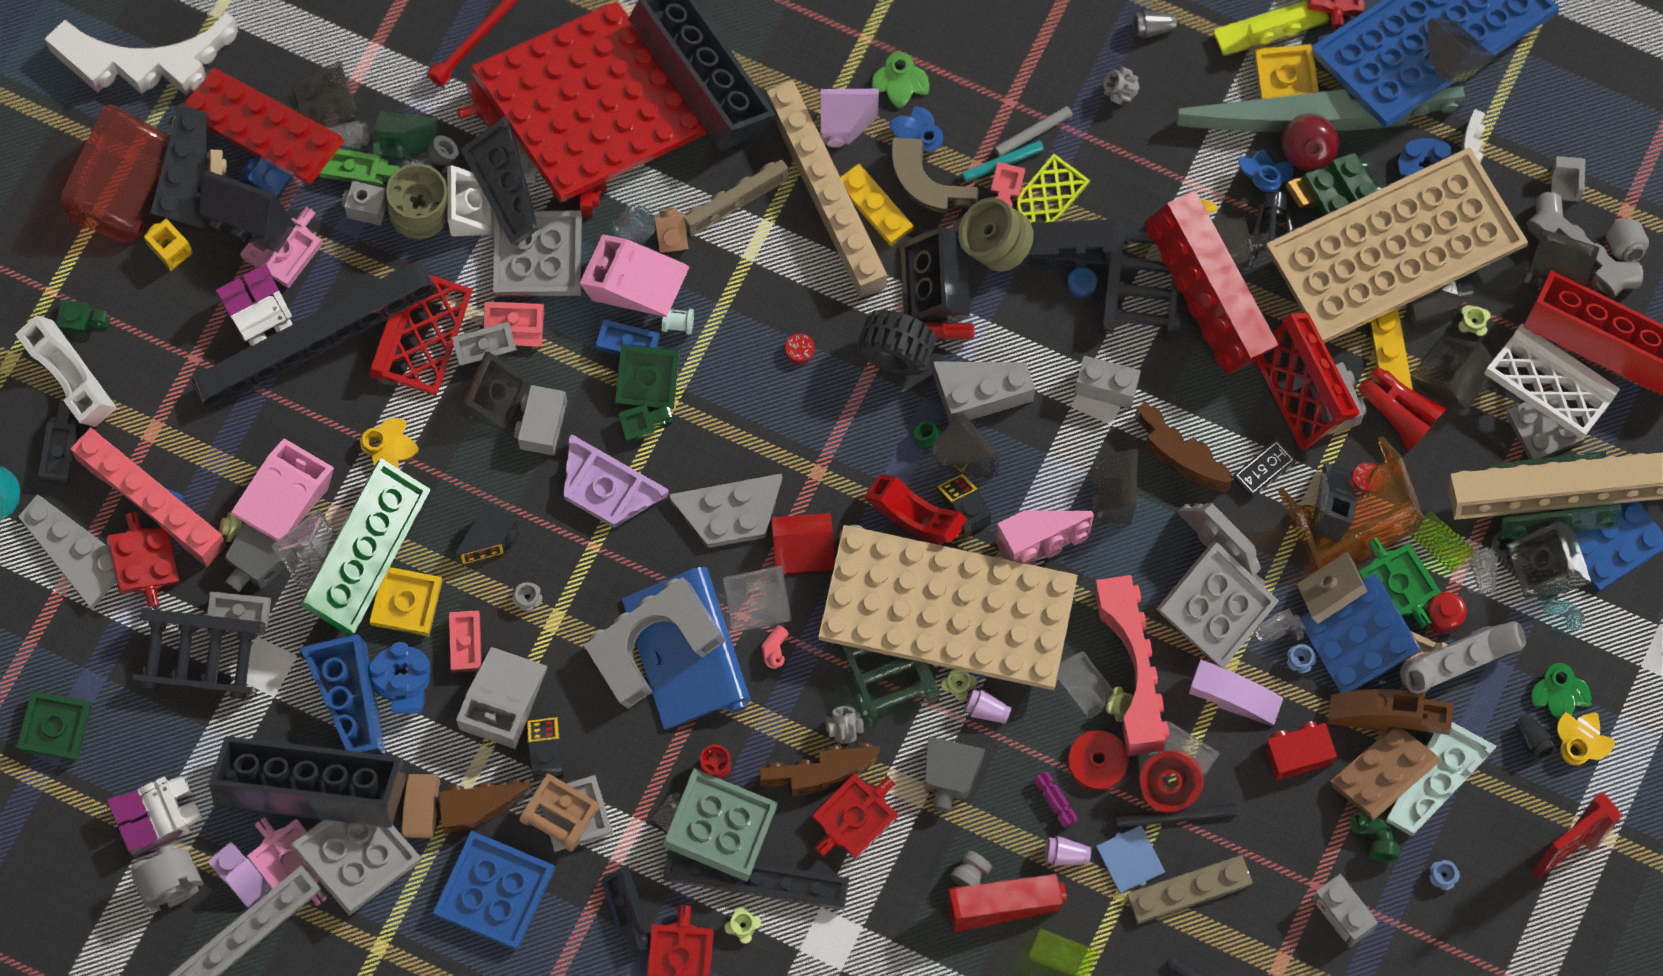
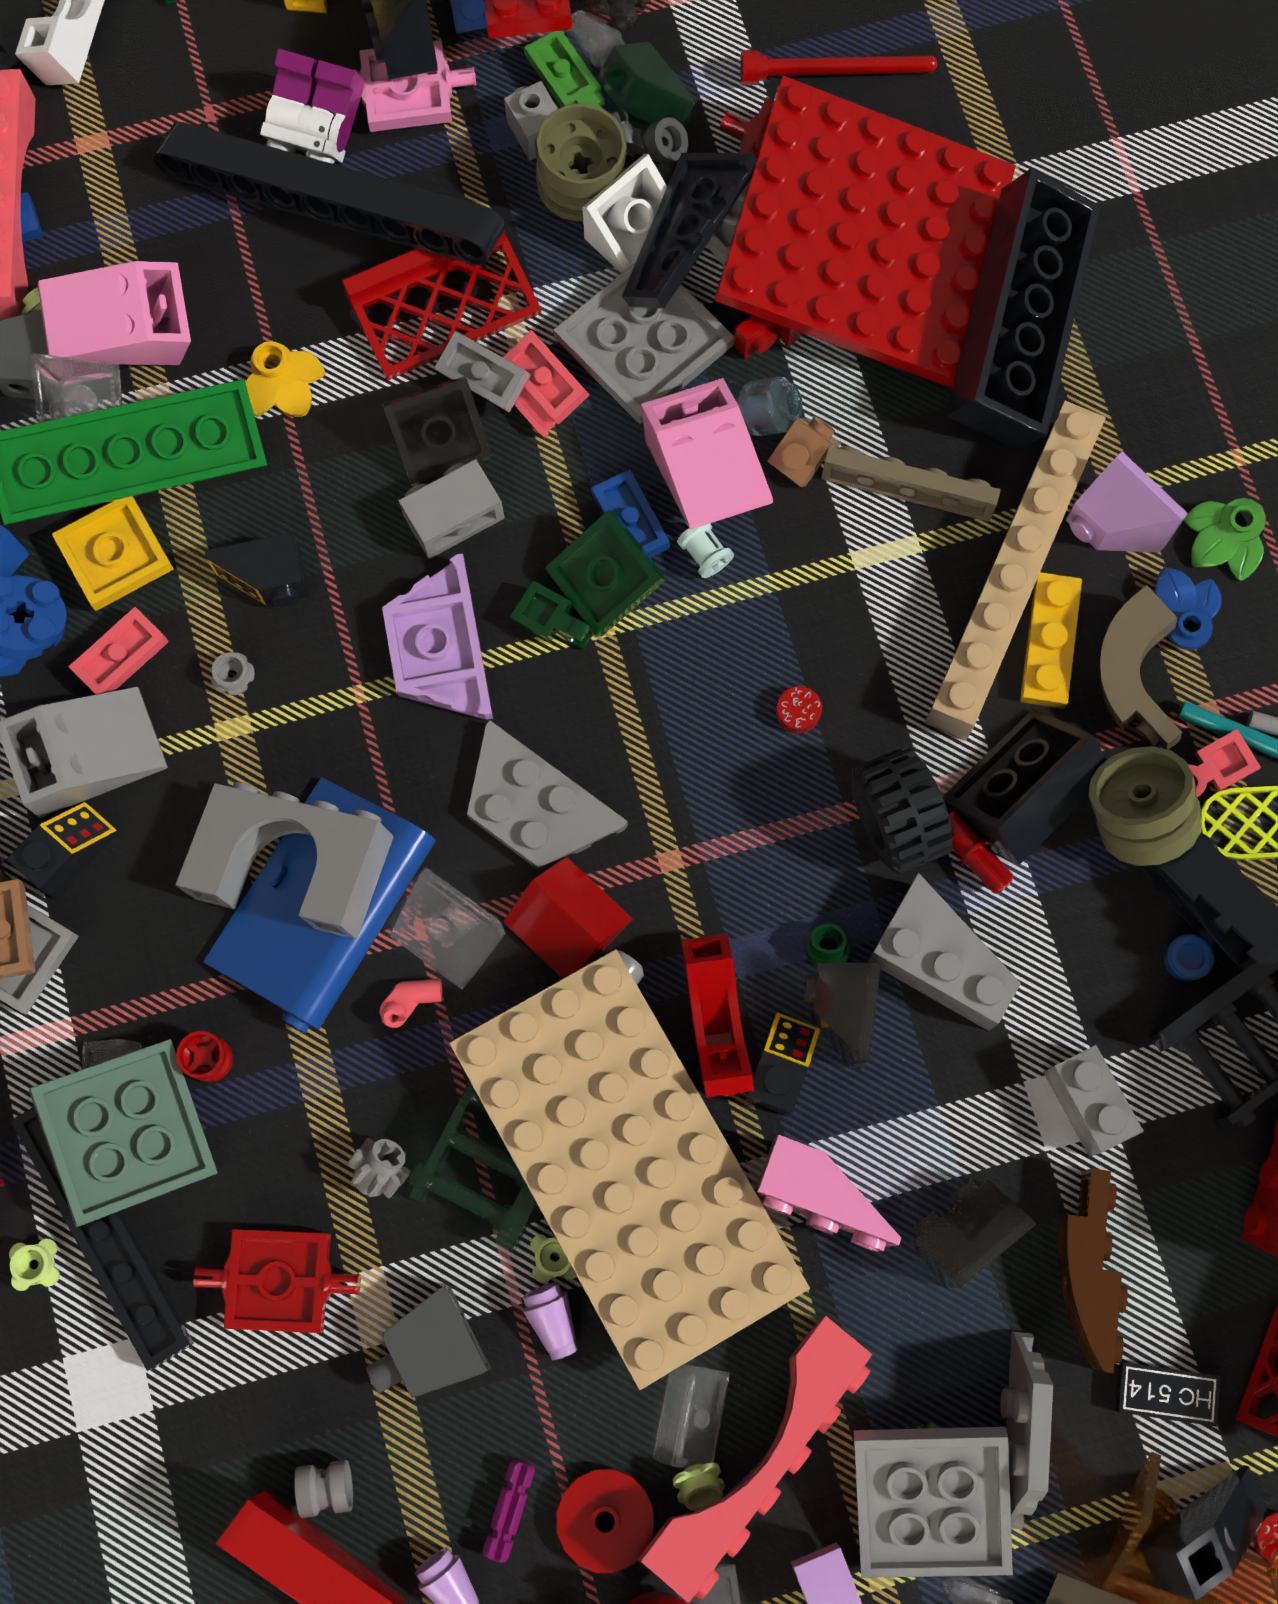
camera: 50 degrees right, 5 degrees up
(834, 768) = (314, 1201): reddish brown slope -> none

